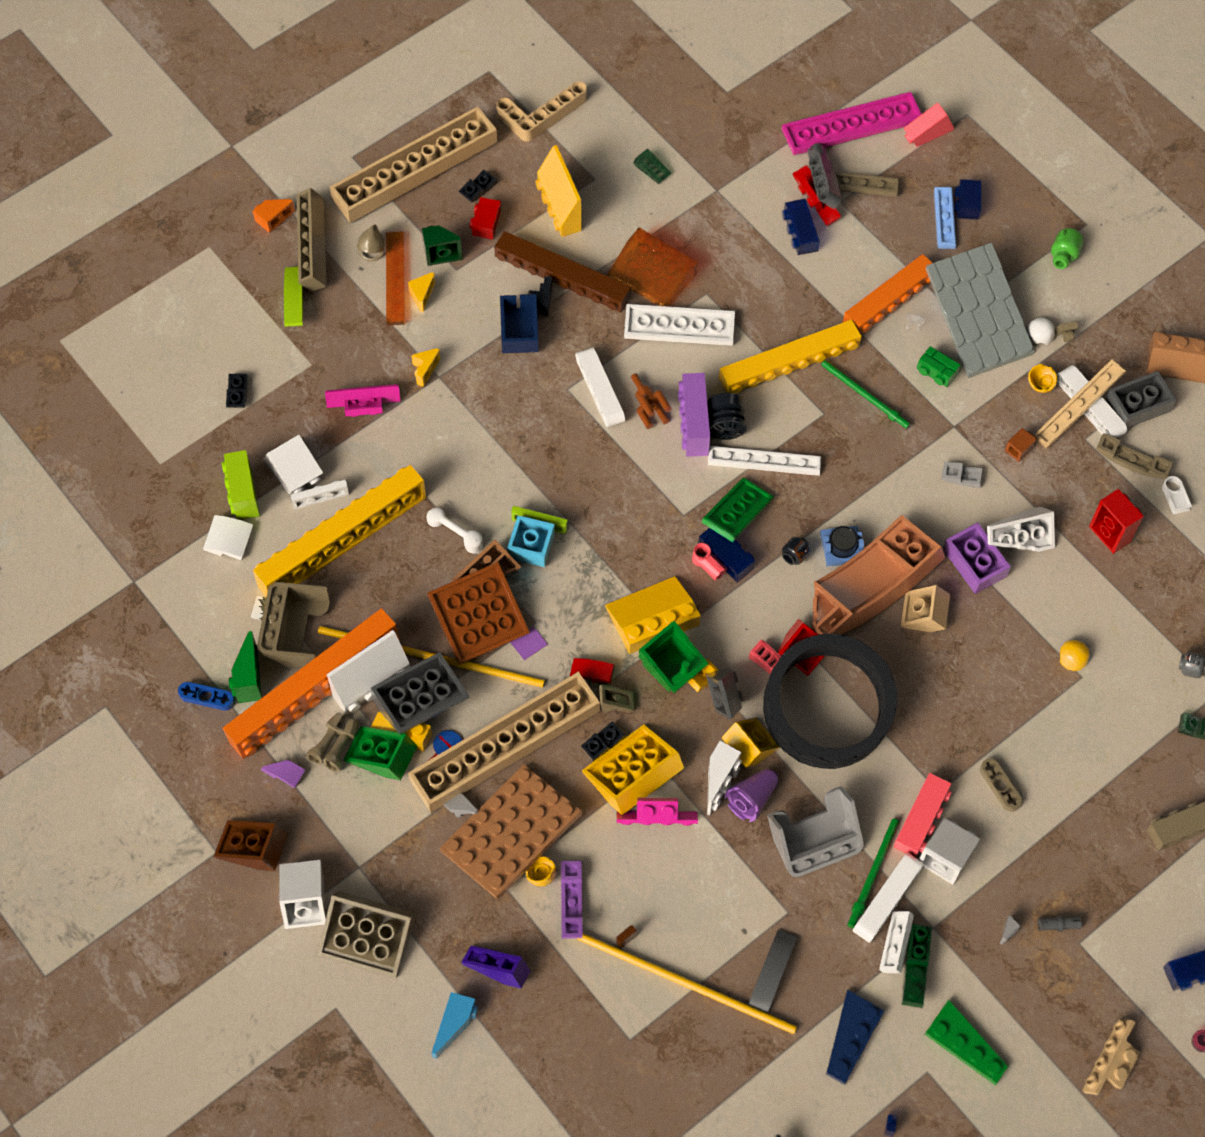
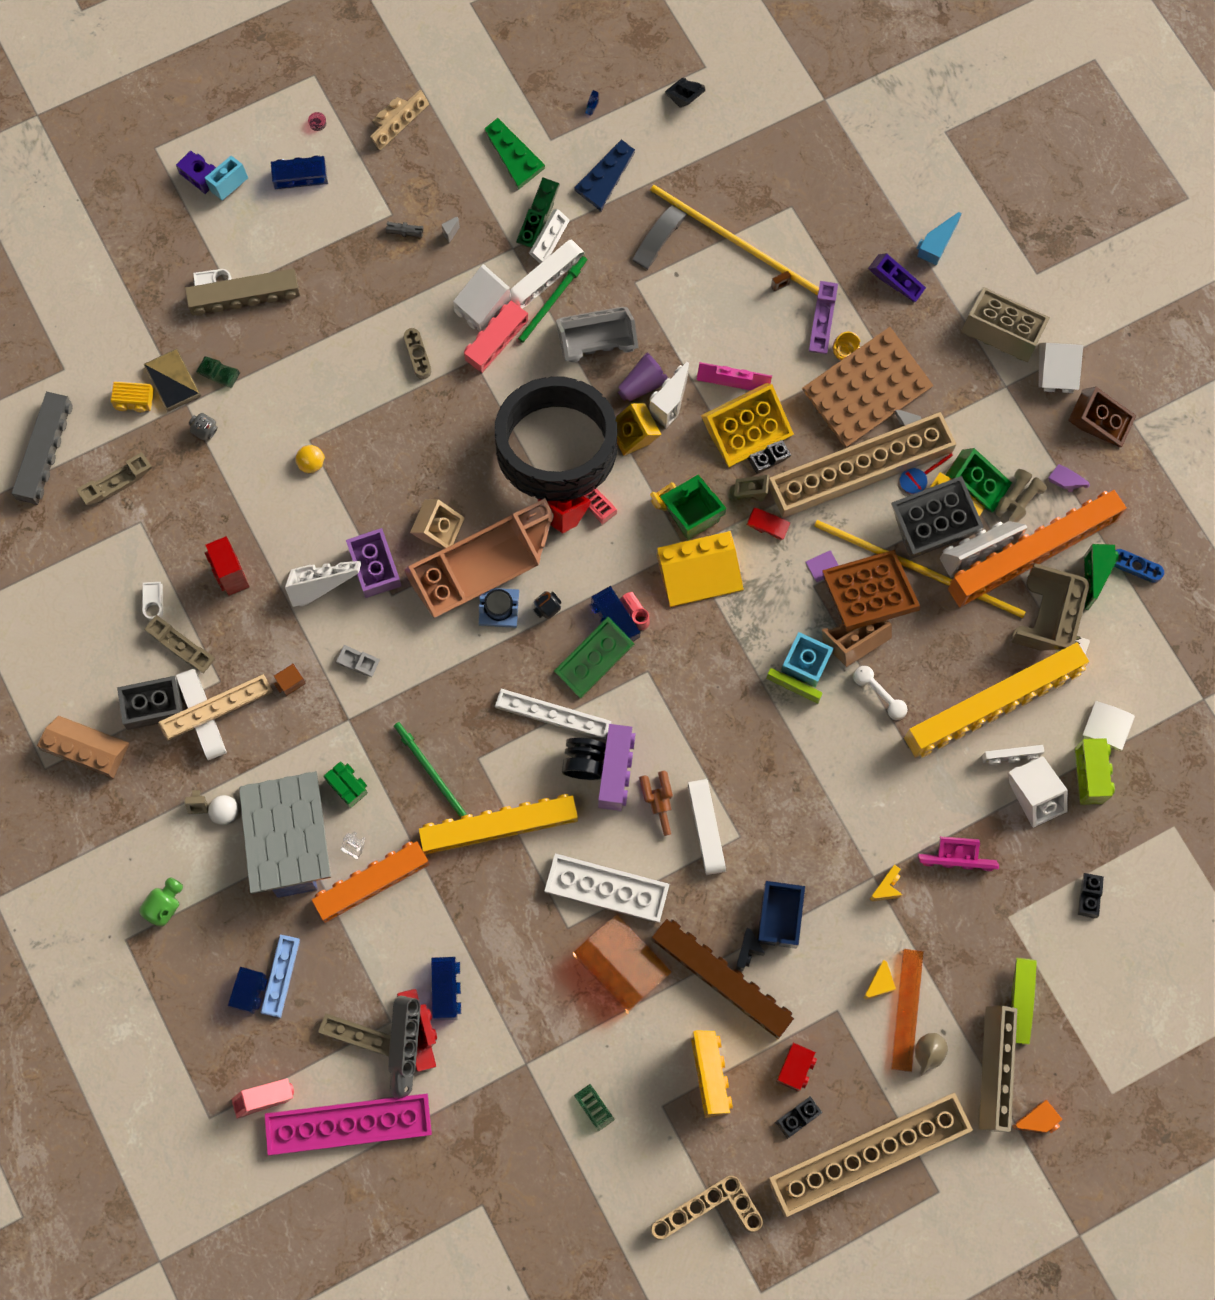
camera: 170 degrees left, 10 degrees up
(441, 245) = (852, 1033): dark green slope -> none
(724, 692) = (650, 464): dark grey slope -> none
(1042, 378) = (242, 748): yellow hair -> none

